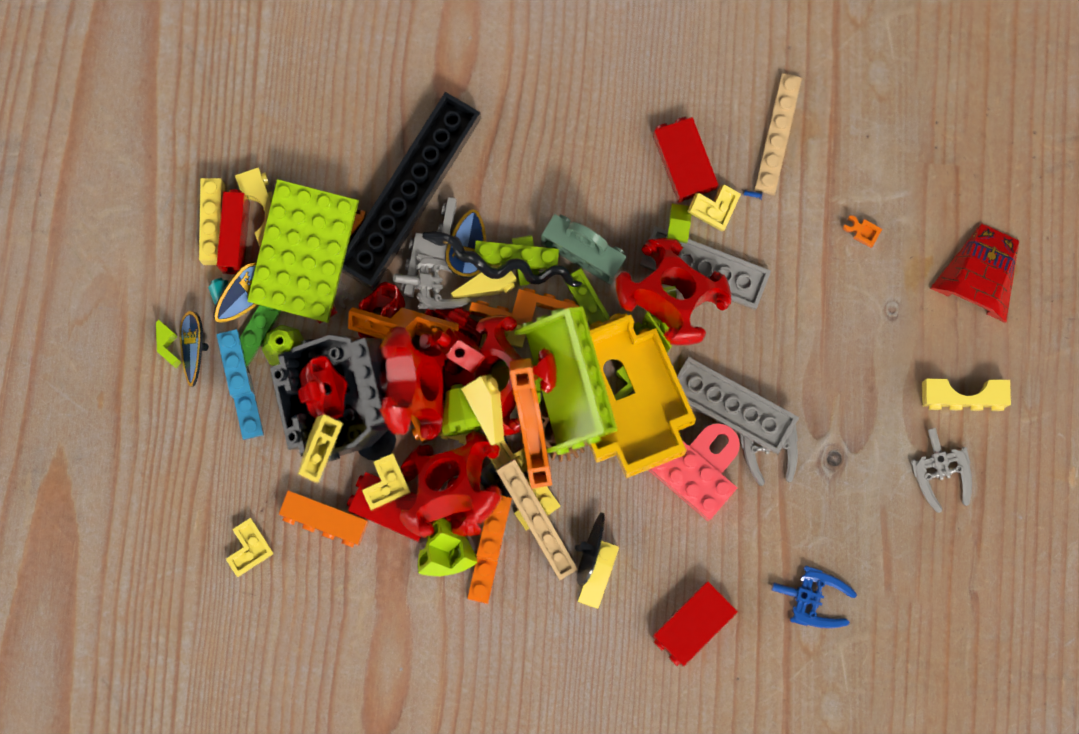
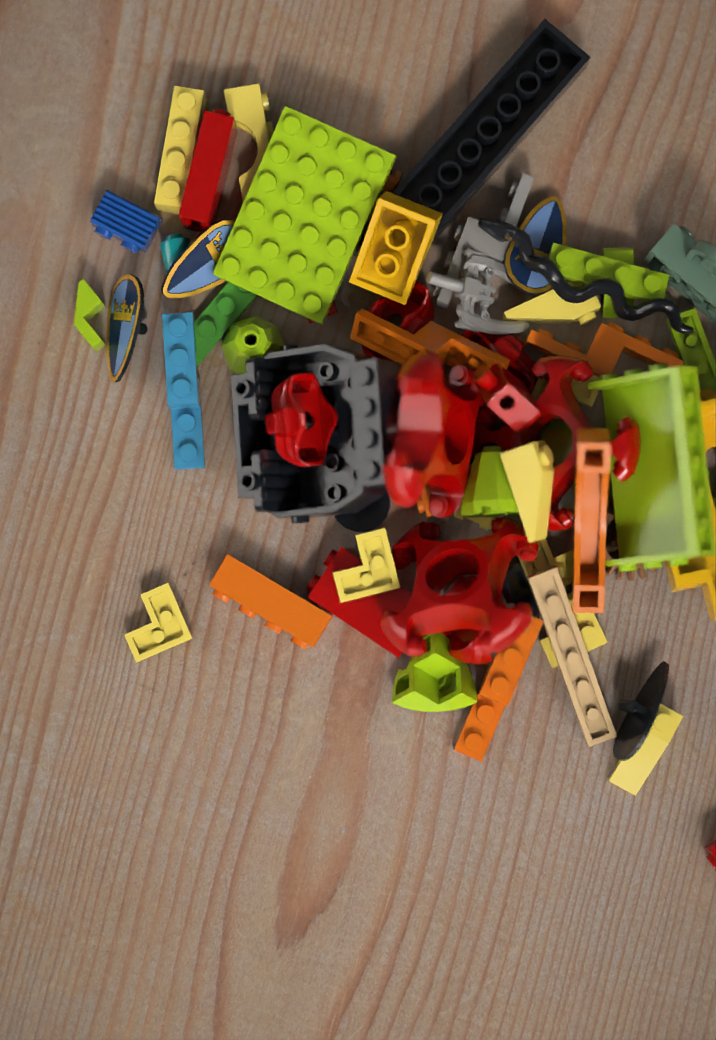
camera: 15 degrees right, 5 degrees up
(182, 276) = (126, 222): none -> blue brick
(319, 447) = (283, 503): light yellow slope -> none
(368, 261) = (395, 247): none -> yellow slope

